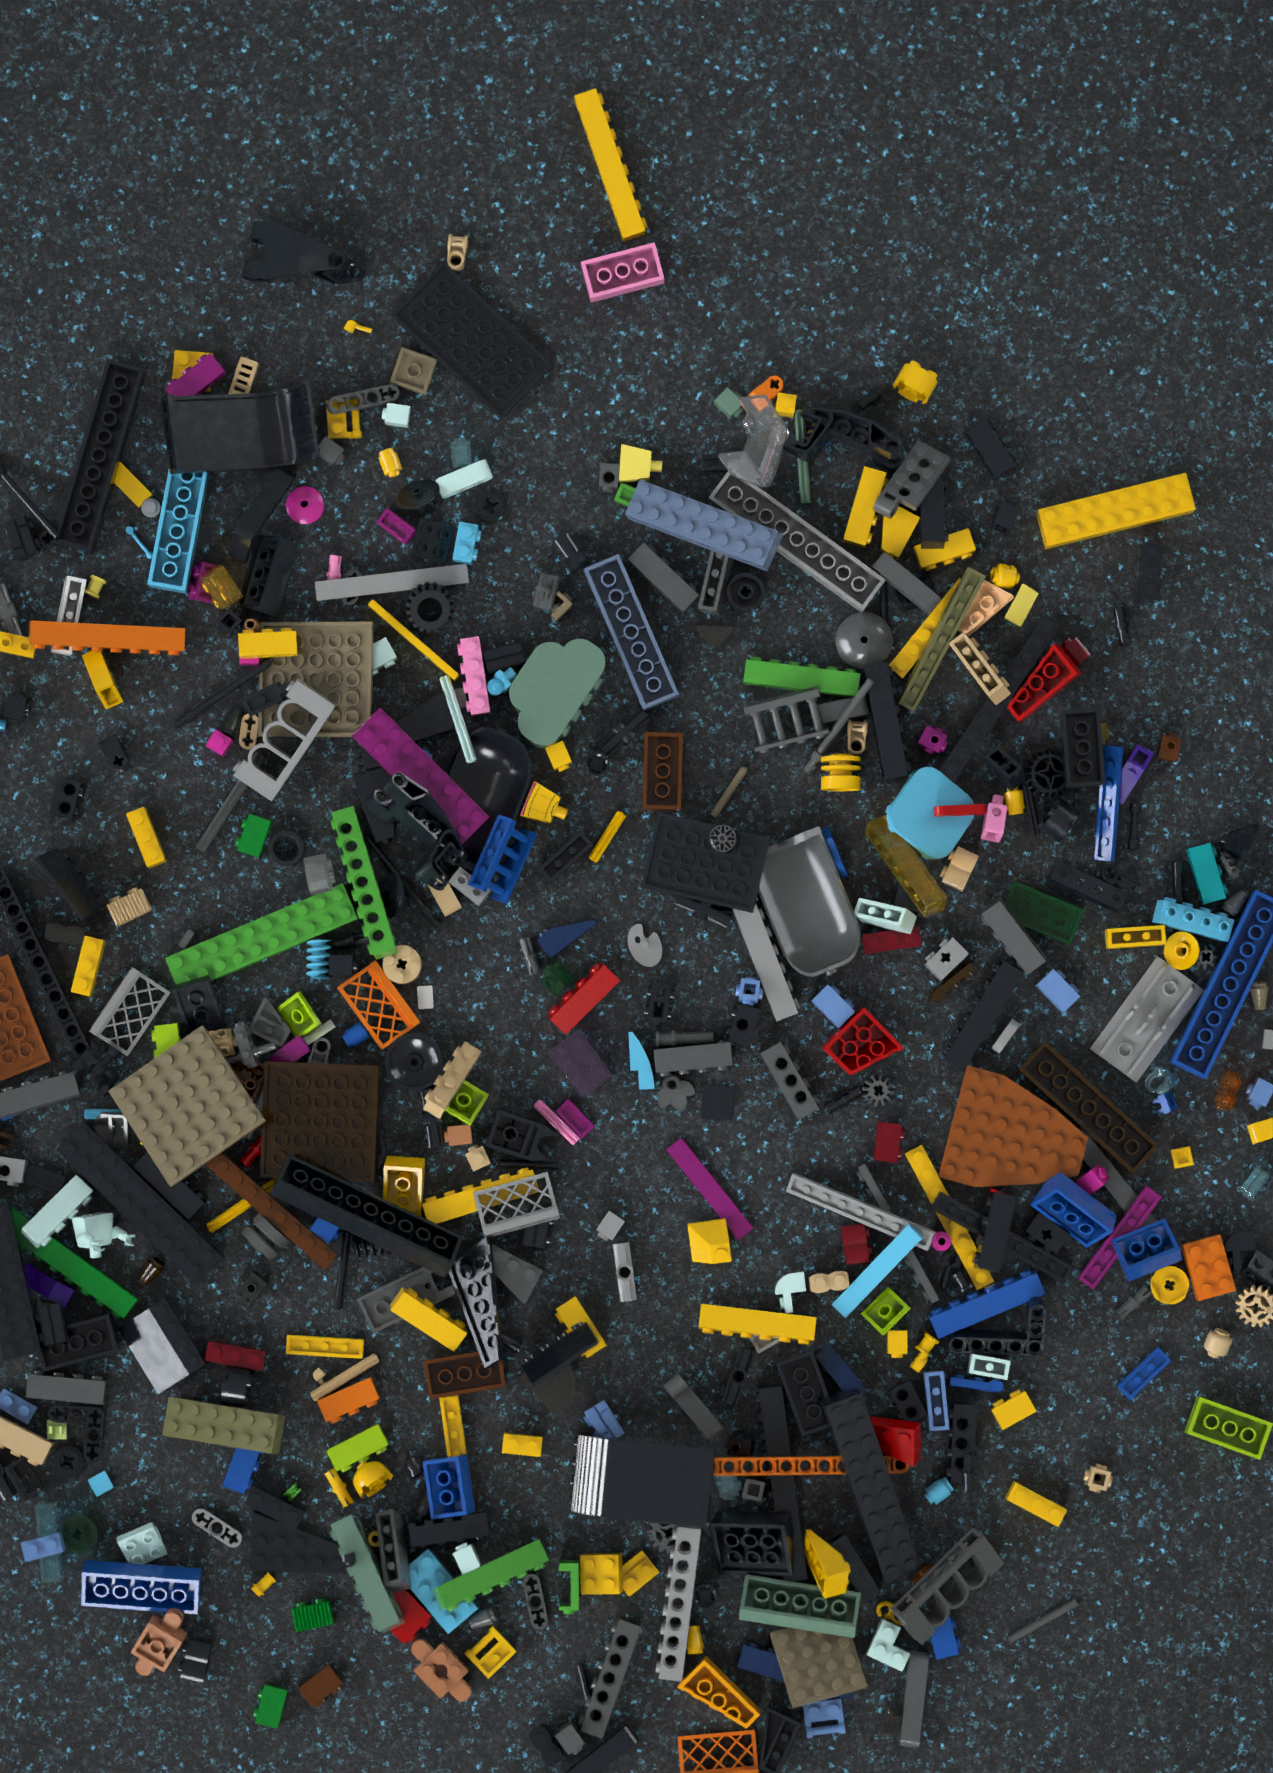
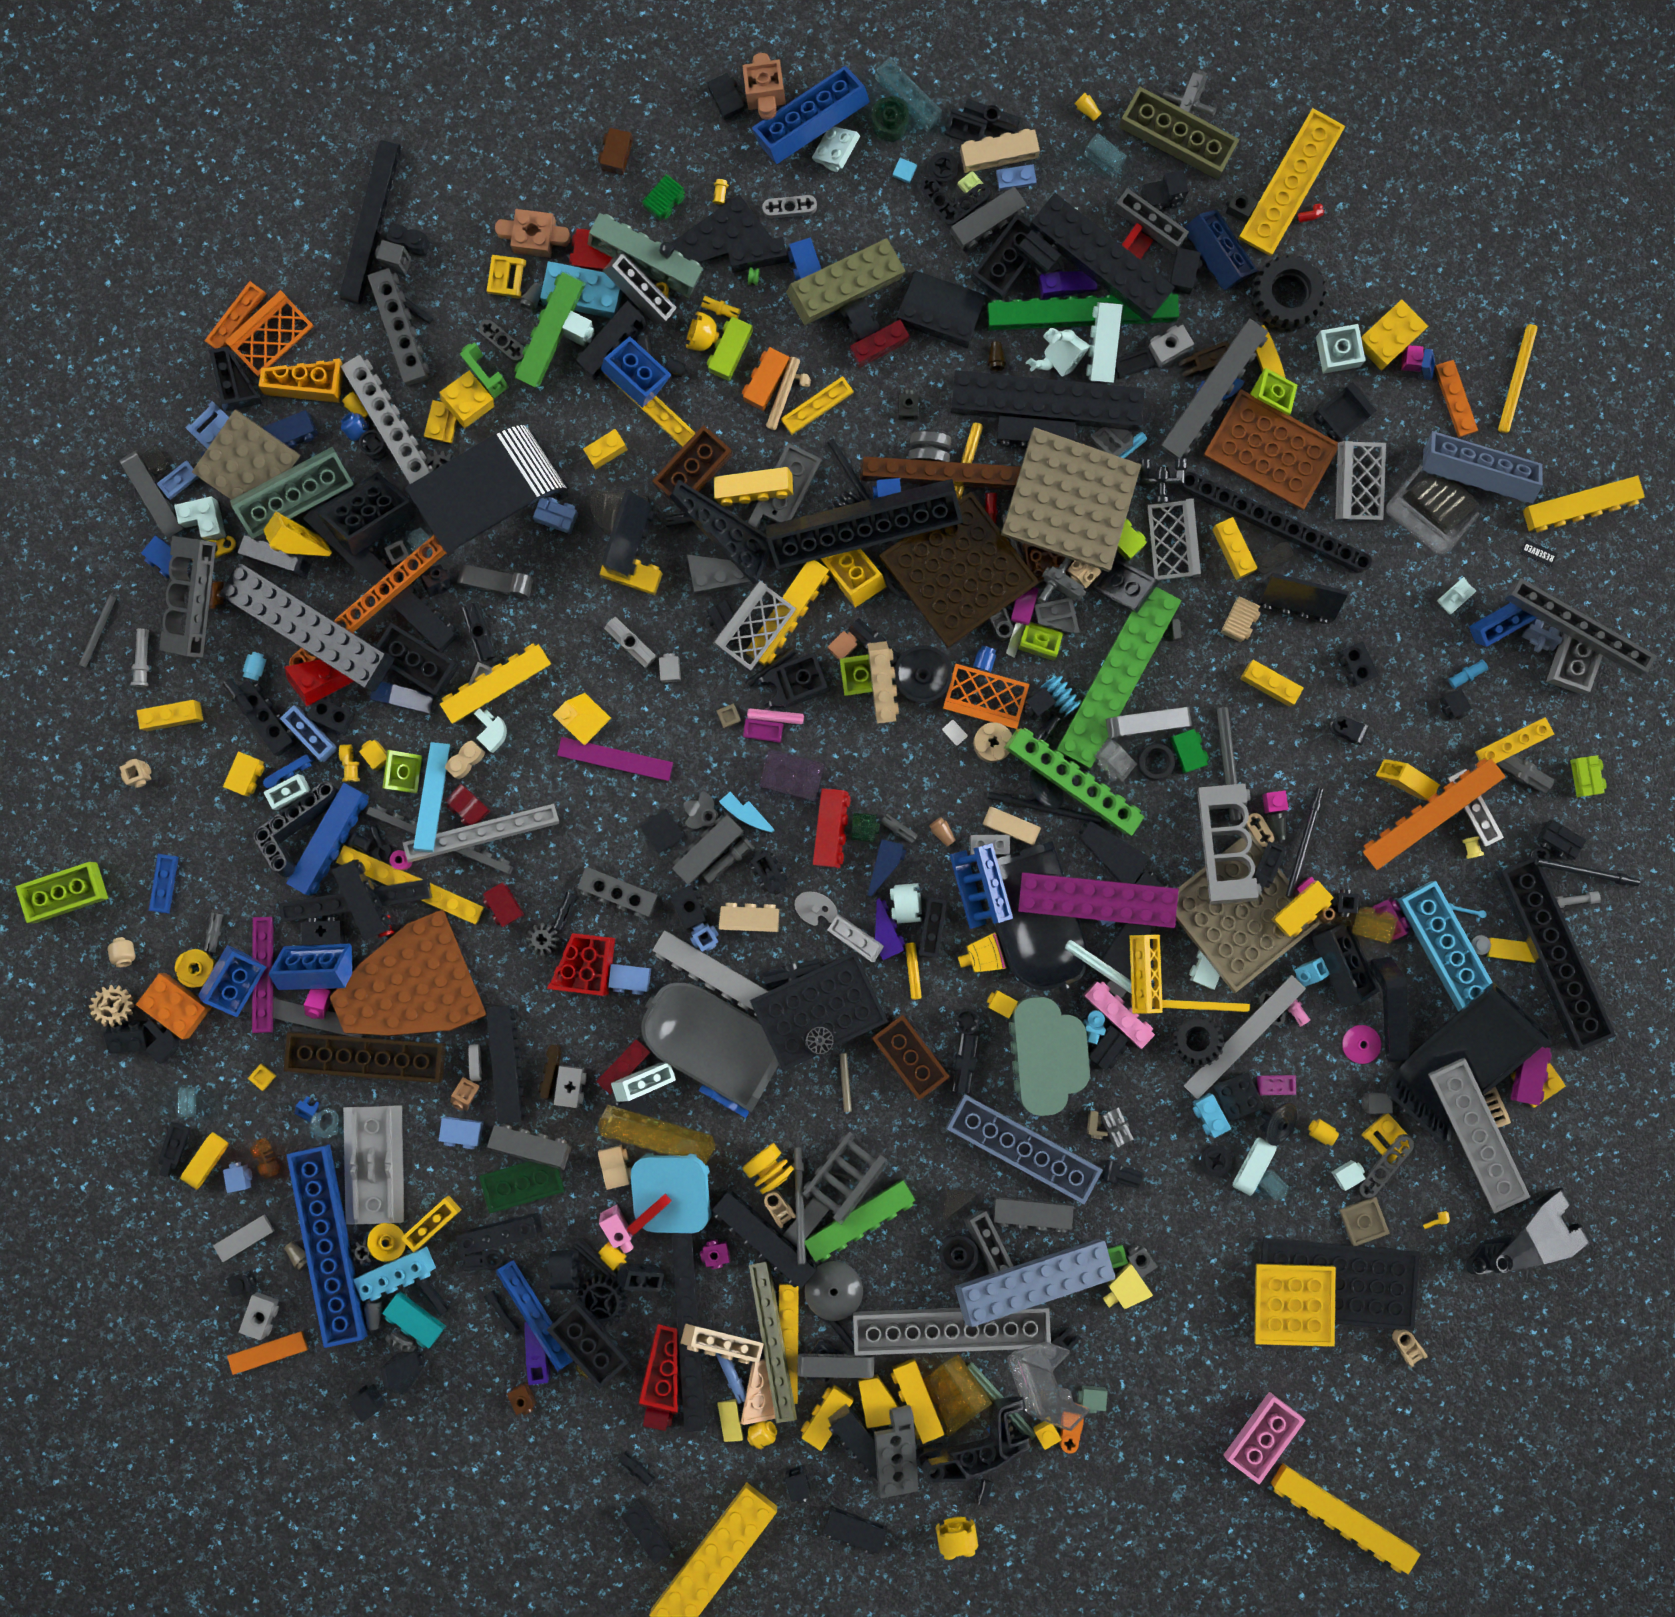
camera: 150 degrees right, 0 degrees up
(35, 475) = (1590, 897): none -> light grey bar
(43, 1546) = (909, 82): medium blue brick -> none
(268, 882) = (1148, 722): none -> beam
(271, 1705) = (641, 107): green brick -> none
(273, 366) = (1479, 1135): none -> light grey plate
(299, 590) = (1312, 972): none -> medium azure brick
(423, 816) = (1066, 867): black piece -> none
(431, 692) = (1142, 974): none -> yellow fence
(477, 1157) = (814, 639): tan brick -> none
(497, 926) = (942, 831): none -> medium nougat cone
(518, 352) = (1295, 1305): none -> yellow plate
(570, 892) = (906, 903): none -> light aqua brick
(593, 1152) = (728, 716): none -> dark tan tile
(607, 880) = (885, 932): none -> dark purple slope
(632, 897) = (855, 938): none -> light grey tile
(702, 978) = (749, 918): none -> tan slope
(708, 1623) = (354, 426): none -> blue head
(831, 489) = (956, 1394): none -> clear yellow wedge
(884, 1694) = (177, 480): none -> medium blue plate
(993, 636) = (735, 1382): none -> medium blue pin
(1030, 1562) = (140, 667): none -> light grey pin
(1033, 1017) = (464, 1094): none -> medium nougat bracket

